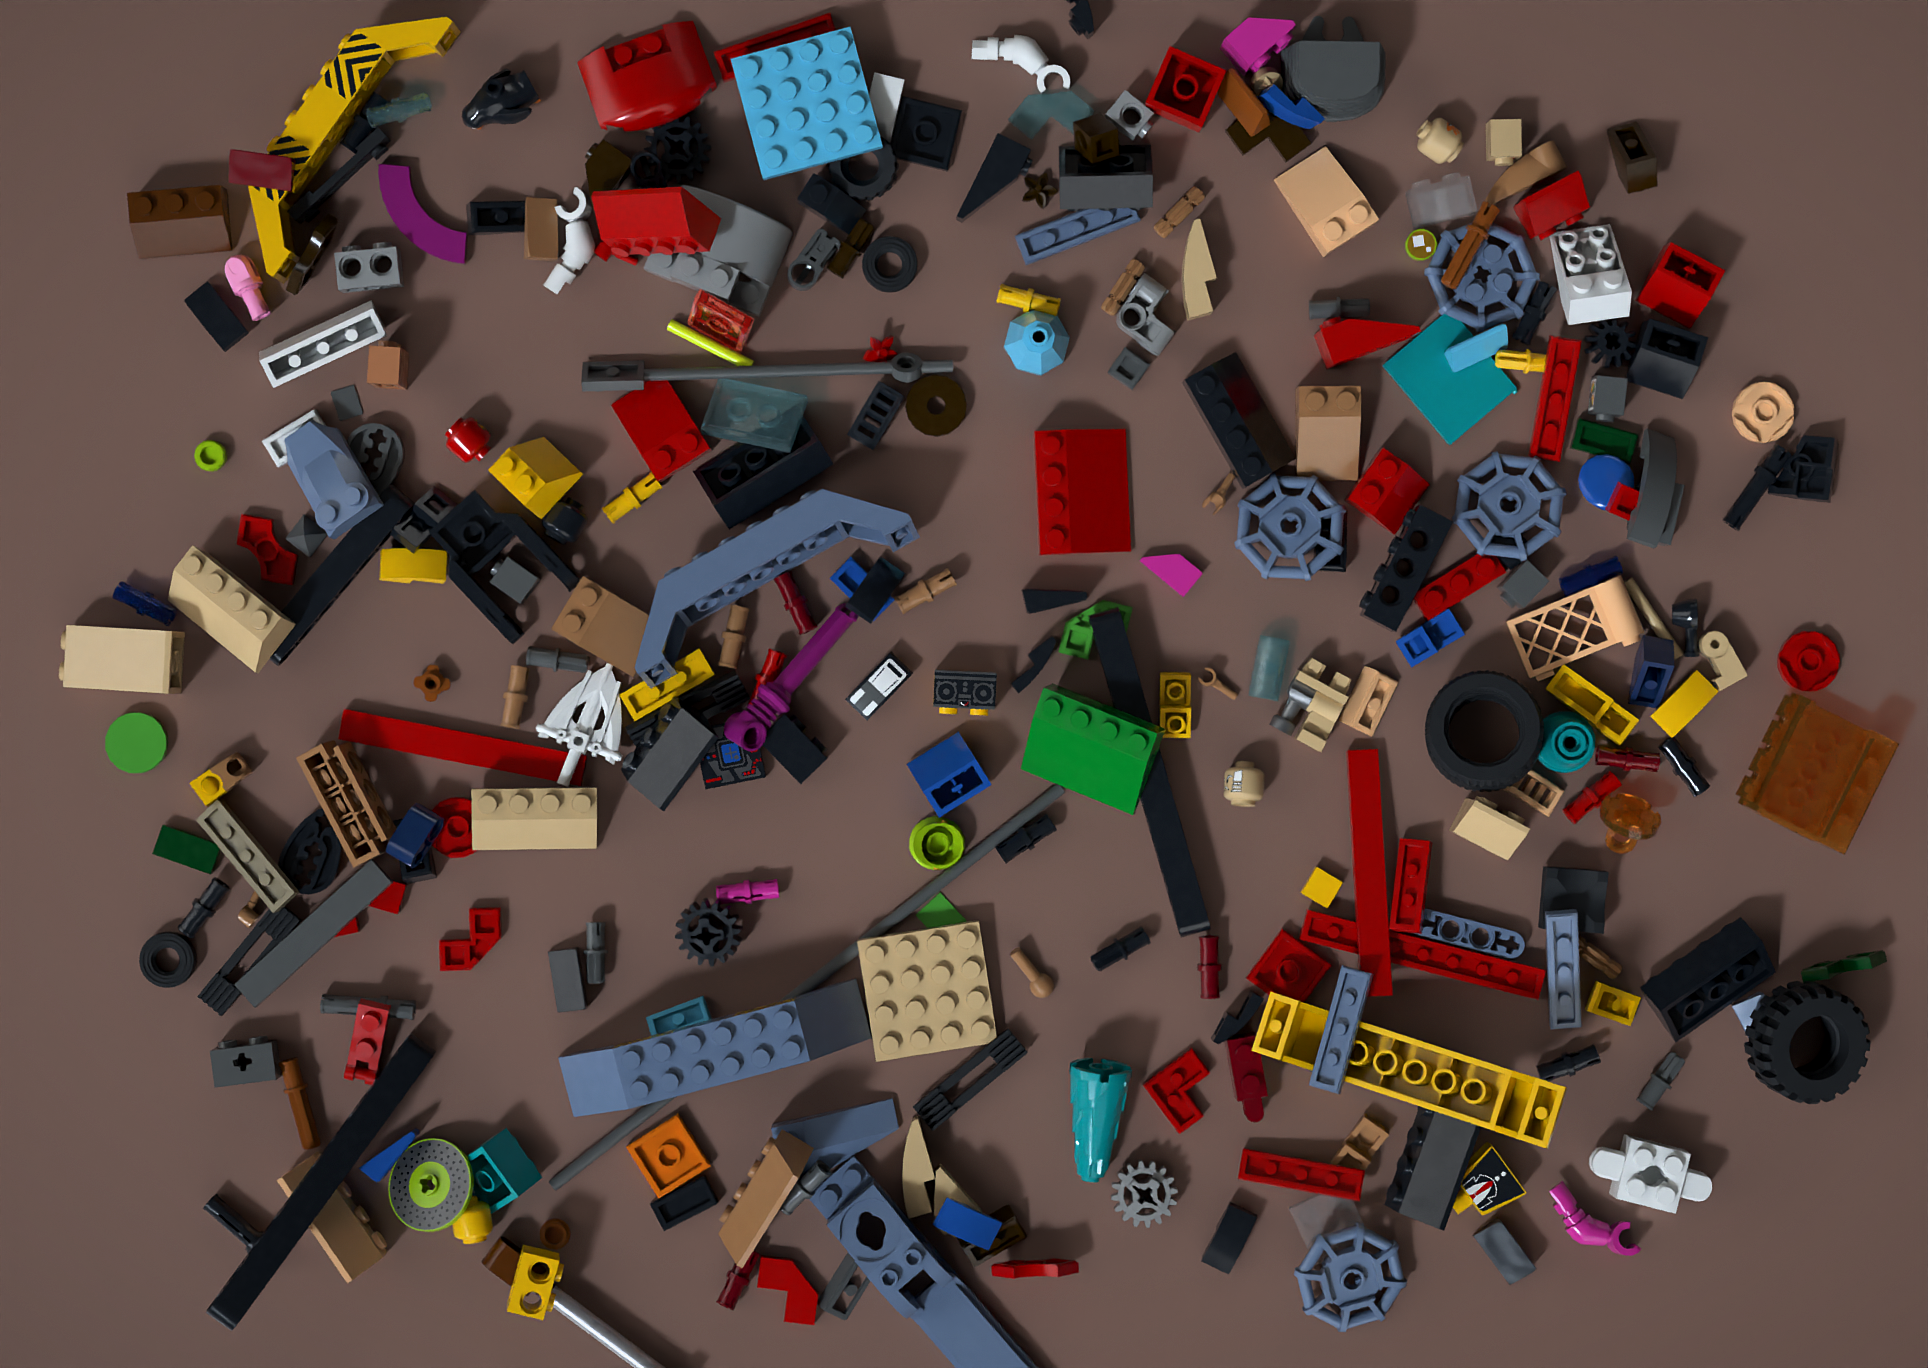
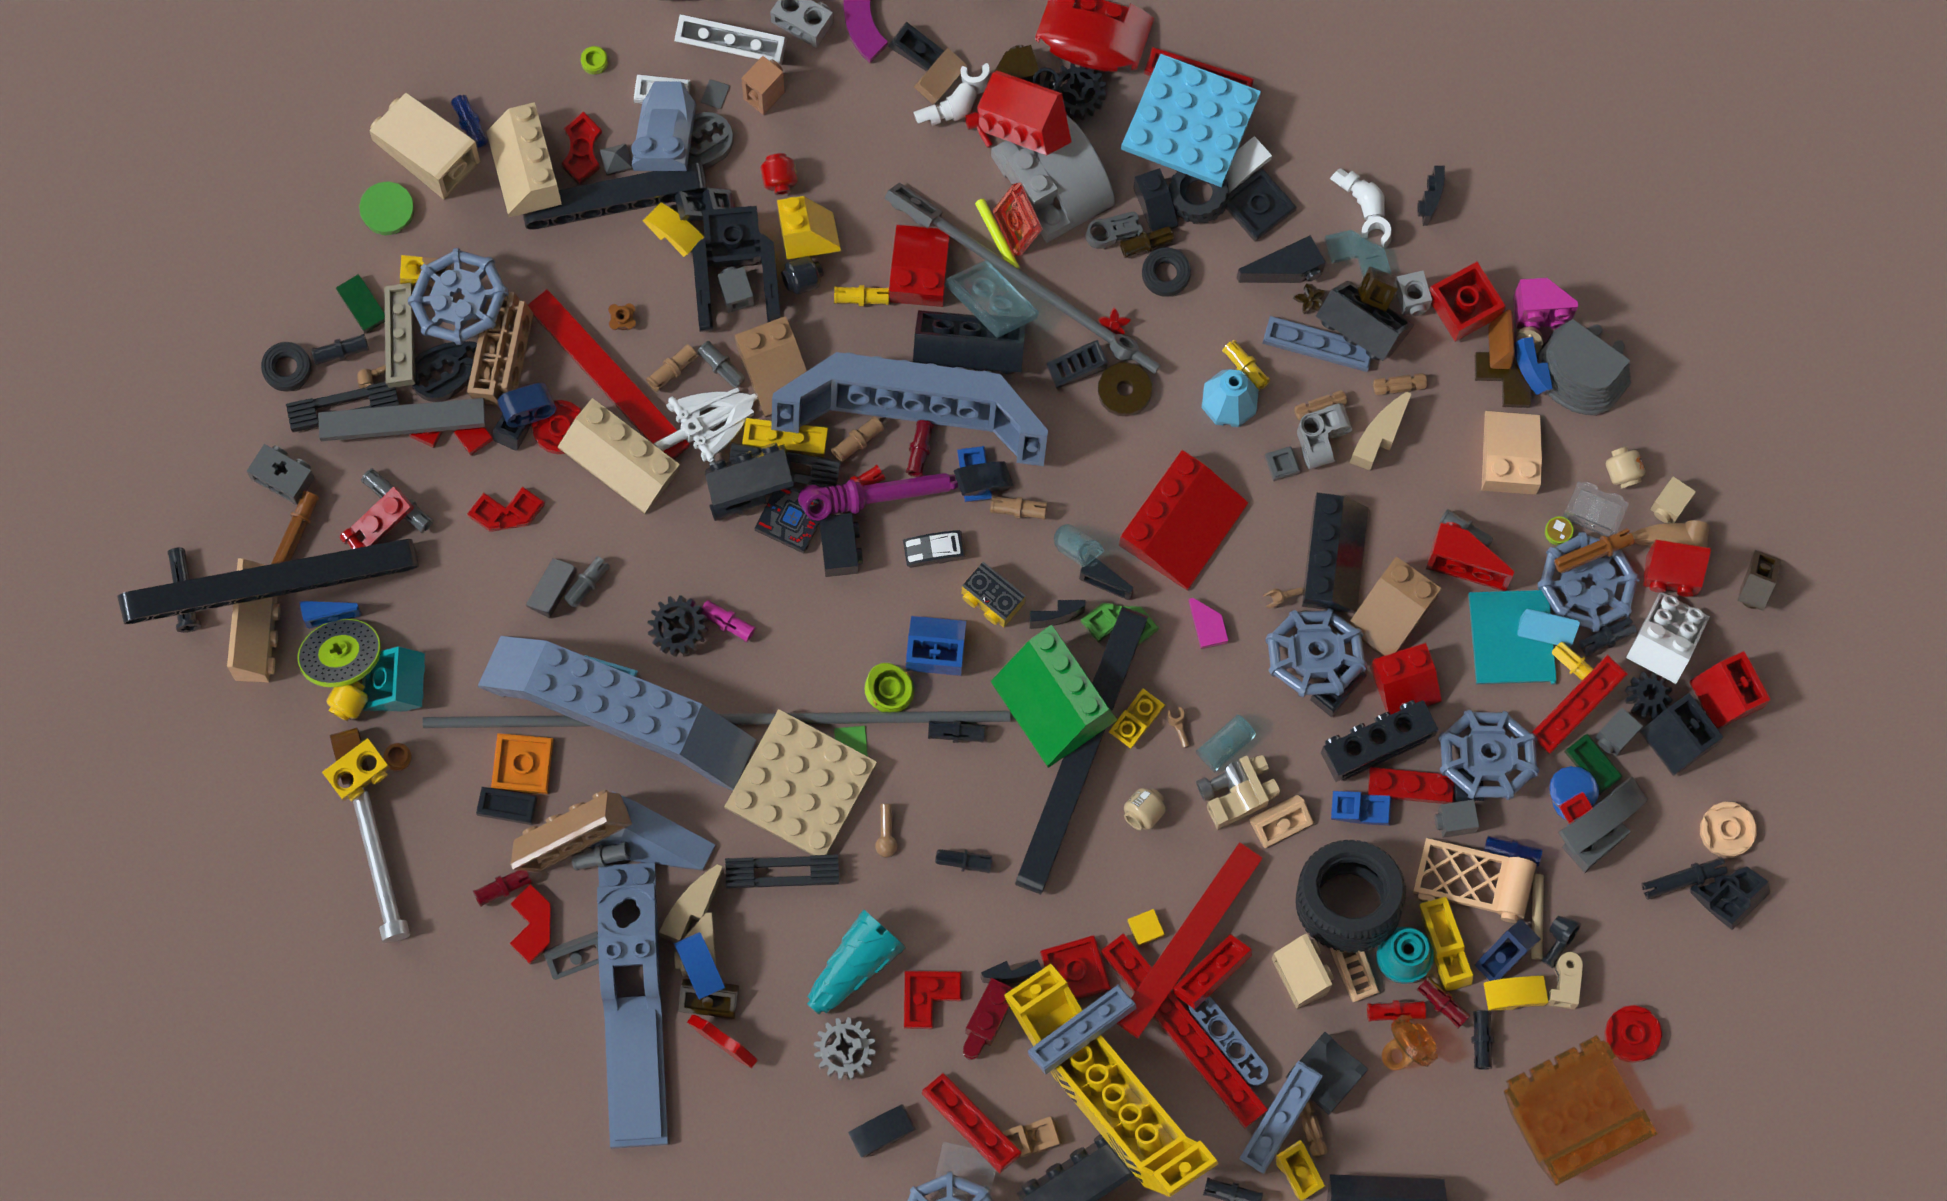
camera: 40 degrees right, 15 degrees down
(256, 782) = (447, 286): none -> sand blue plate
(1006, 589) = (1077, 544): none -> clear light blue brick
(1209, 967) = (1019, 922): dark red pin -> none

